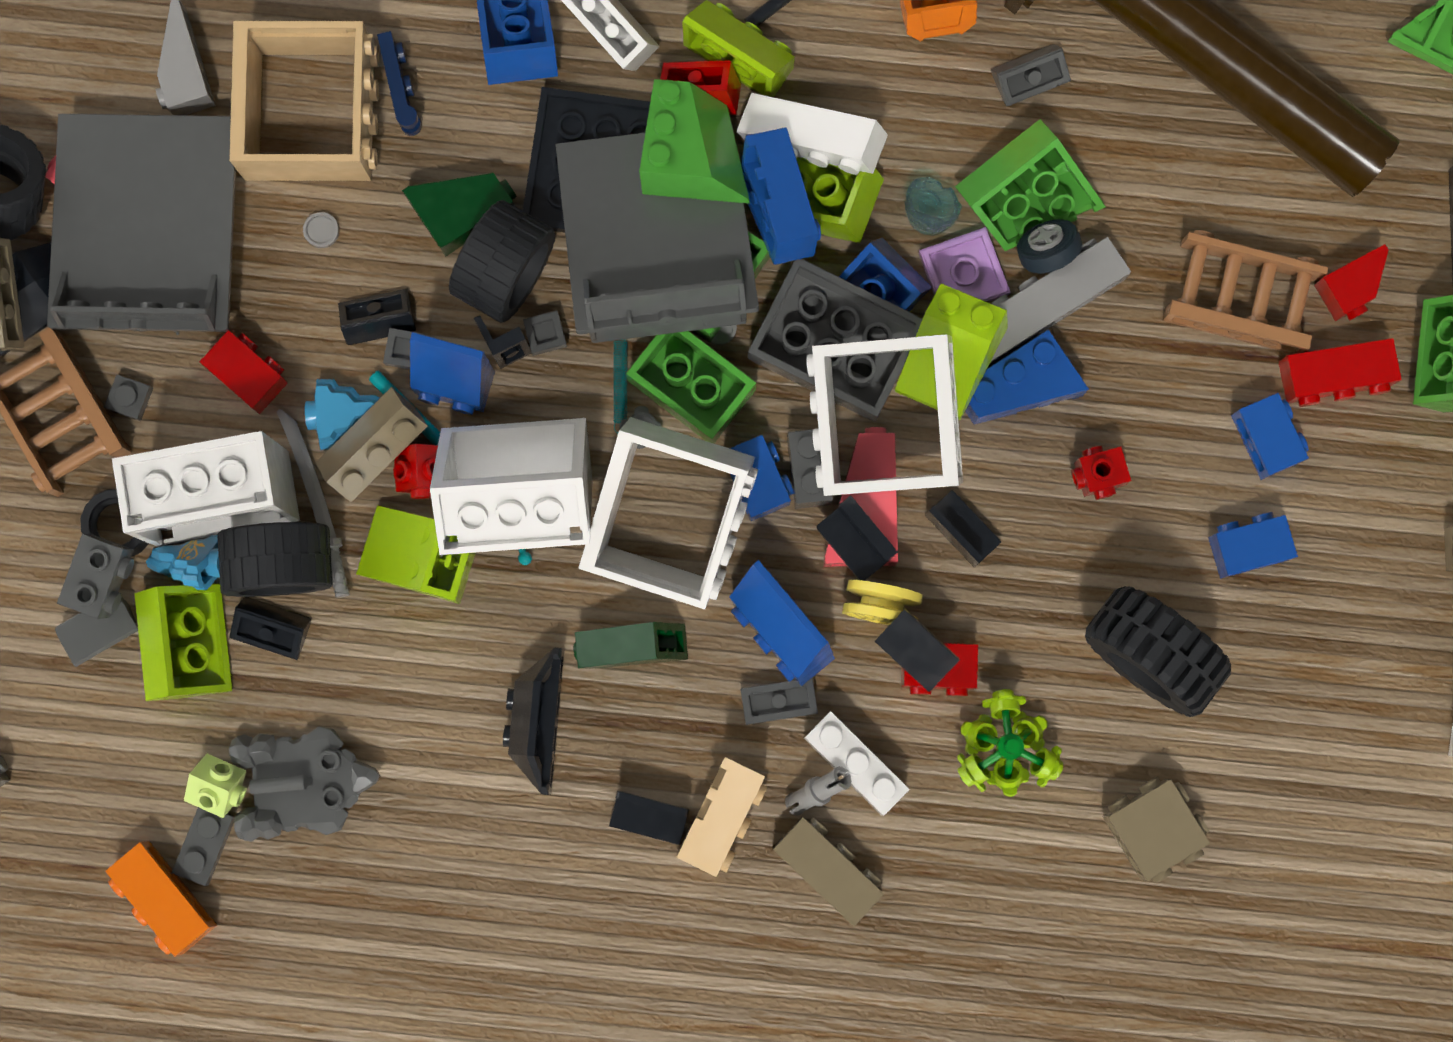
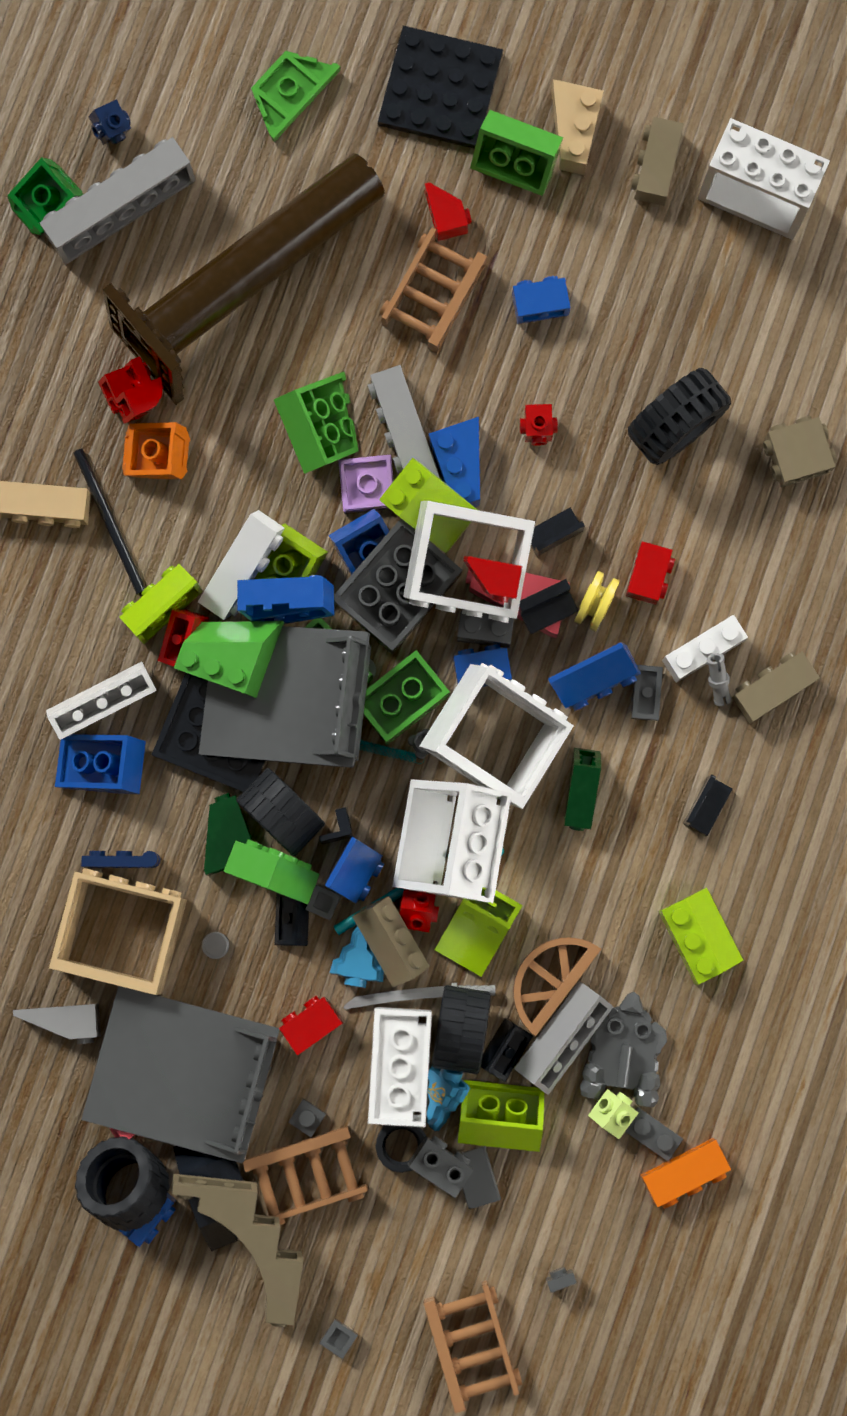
camera: 75 degrees left, 0 degrees up
(298, 697) = (563, 1037): none -> light grey brick
(362, 681) = (556, 996): none -> medium nougat window
(420, 267) = (272, 870): none -> bright green brick
(473, 848) = (701, 936): none -> lime slope
(535, 719) = (619, 870): black wedge -> none
(545, 333) = (336, 796): dark grey plate -> none
(722, 818) = (720, 752): tan wedge -> none
(868, 451) = (495, 577): none -> red slope
(917, 650) = (638, 583): black panel -> none
(931, 206) = (314, 494): clear light blue hair -> none
(1025, 733) = (711, 527): lime plant -> none
(1031, 74) = (232, 398): dark grey slope -> none
(1049, 246) = (366, 417): black wheel -> none
(1253, 545) = (616, 333): blue brick -> none
(1340, 372) = (507, 239): red brick -> none

